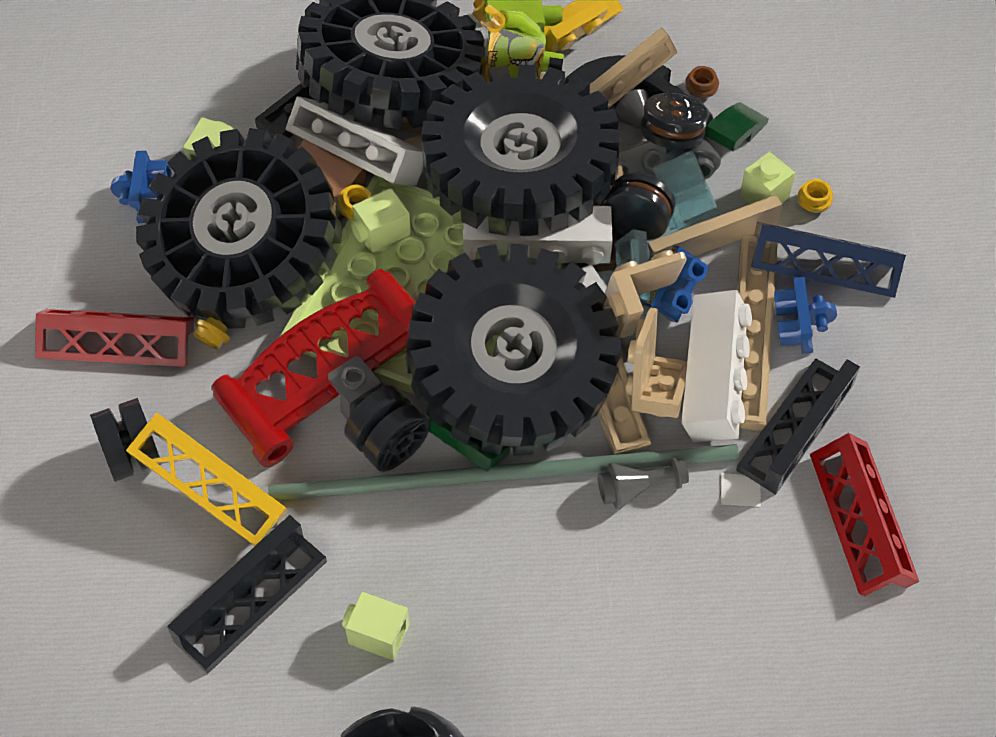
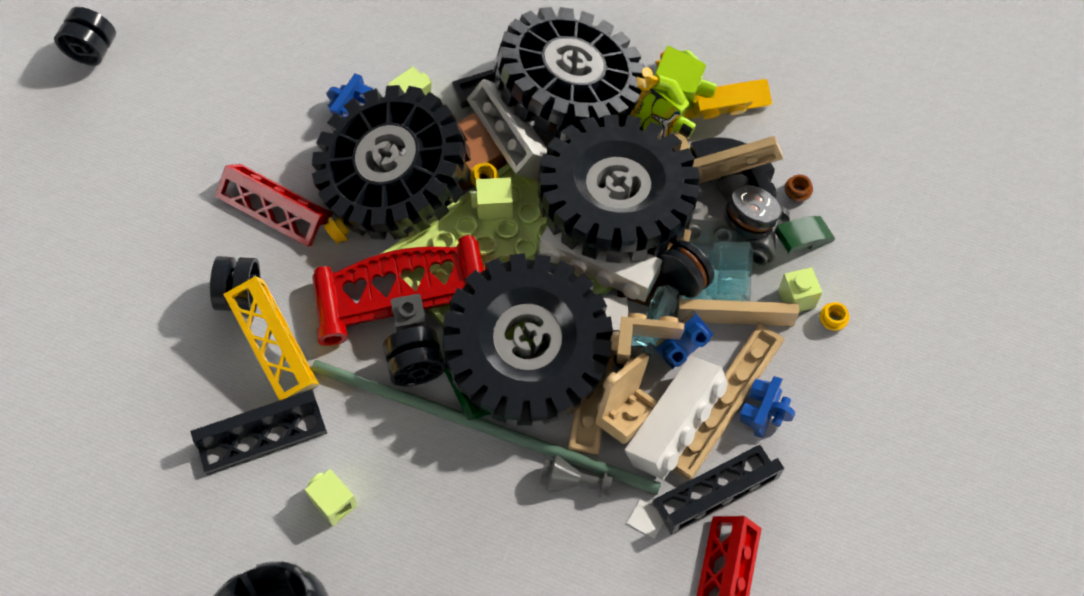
camera: 25 degrees right, 5 degrees up
(834, 246) = (819, 362): dark blue fence -> none

